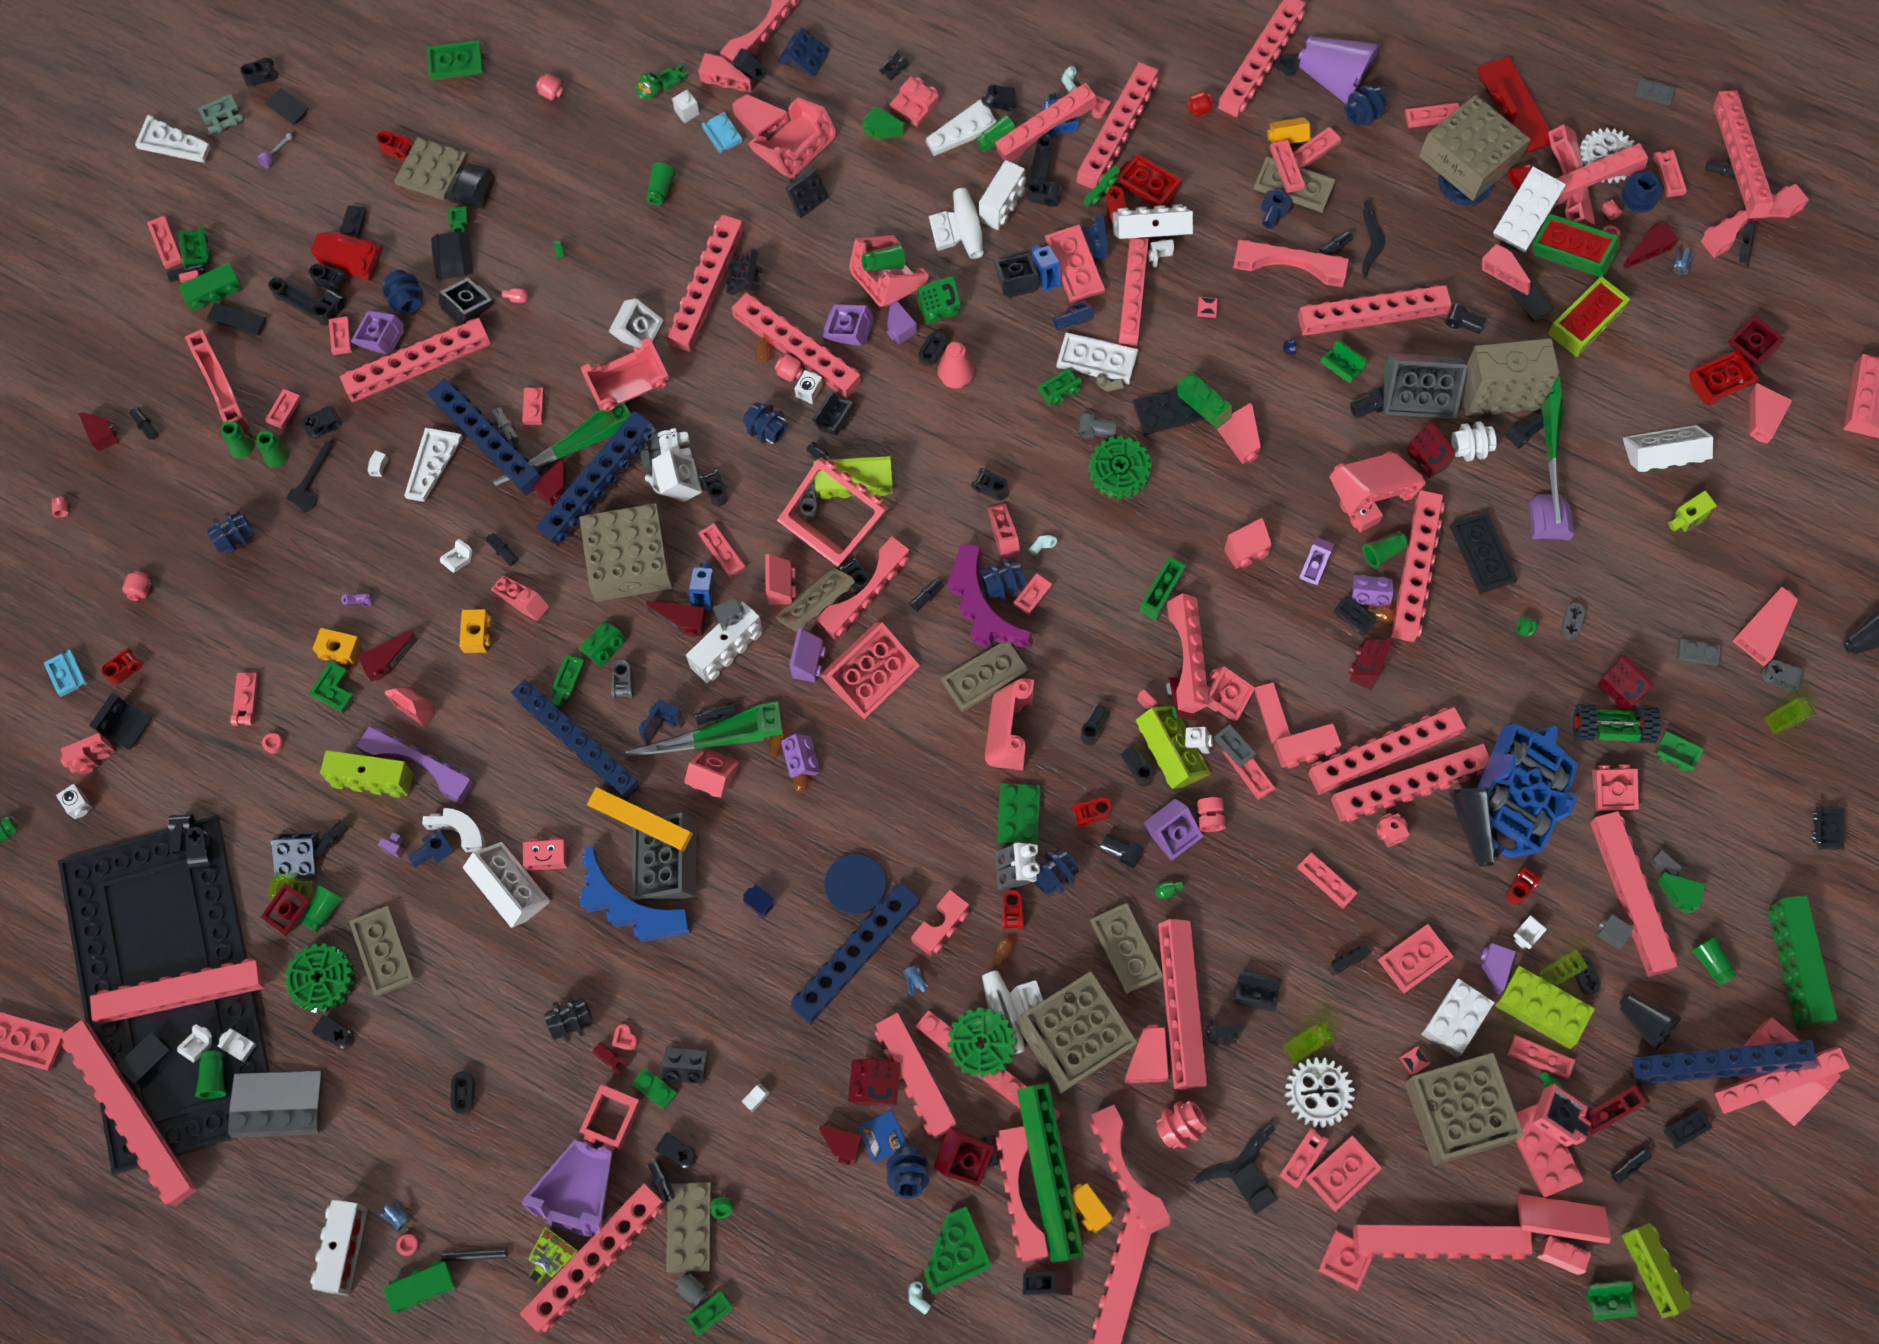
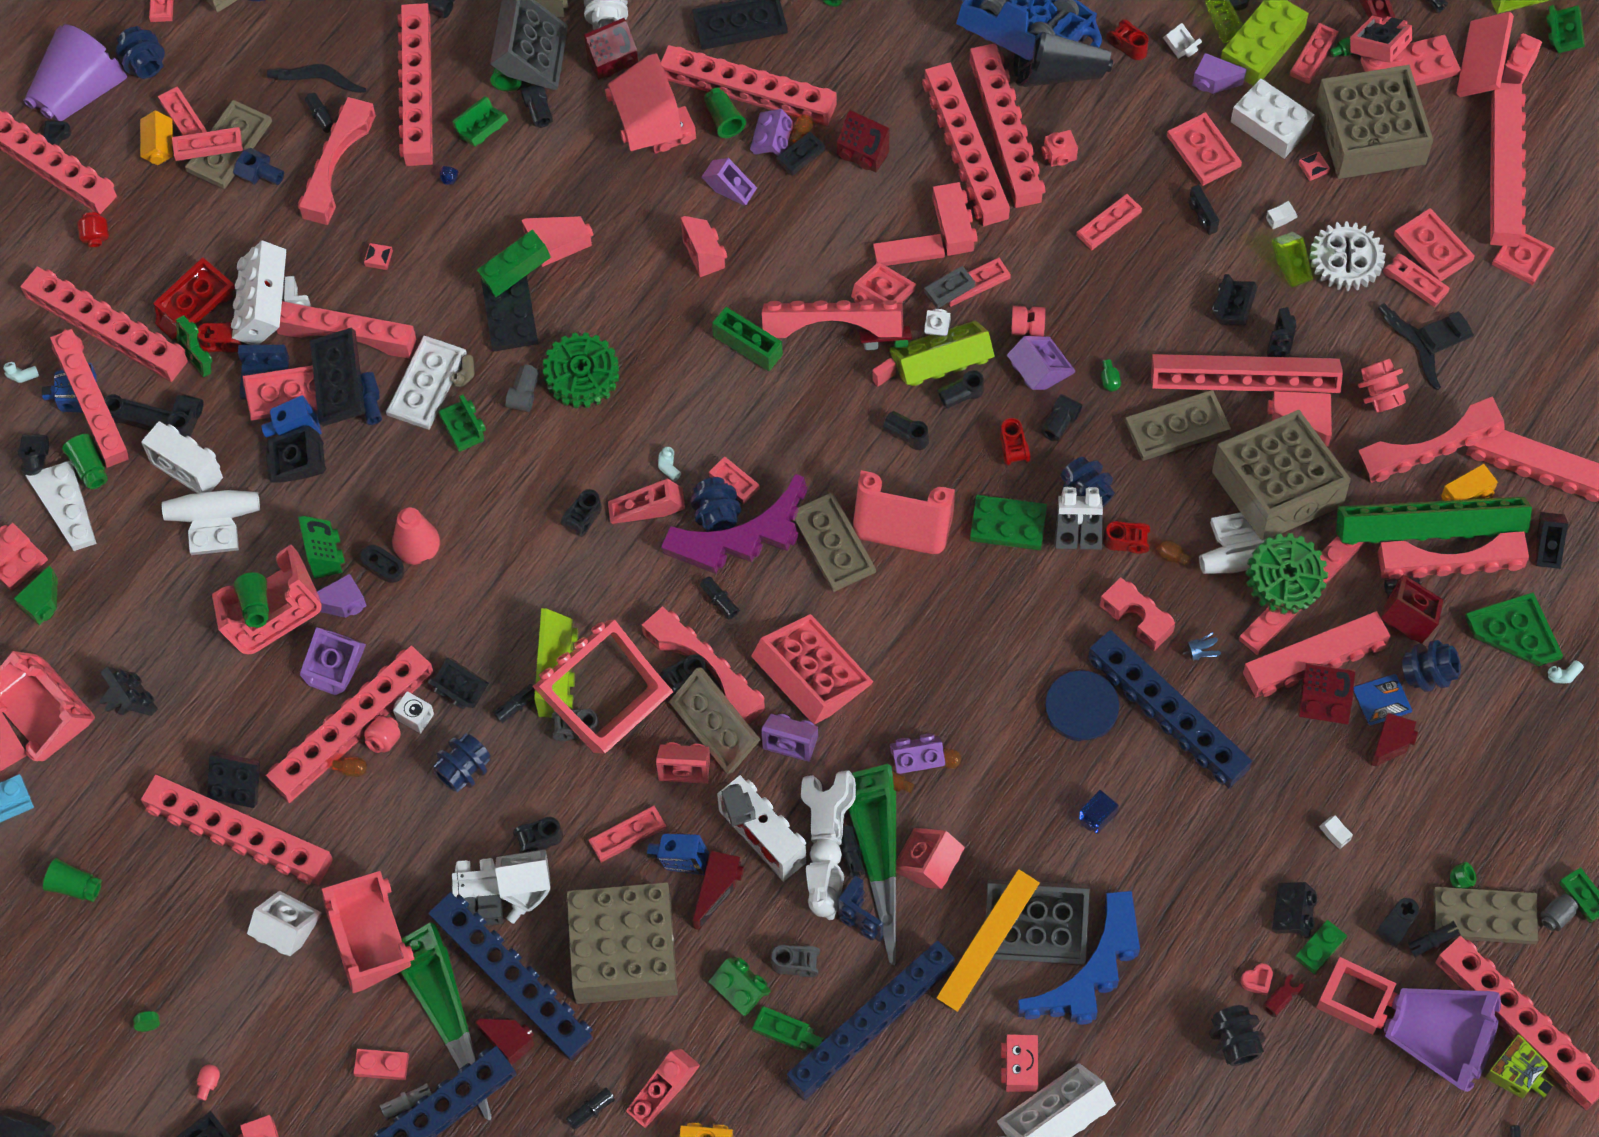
camera: 85 degrees left, 5 degrees down
(728, 691) = (827, 815): none -> white piece
(1085, 289) = (337, 377): none -> black plate
(1356, 1032) = (1281, 215): none -> white piece

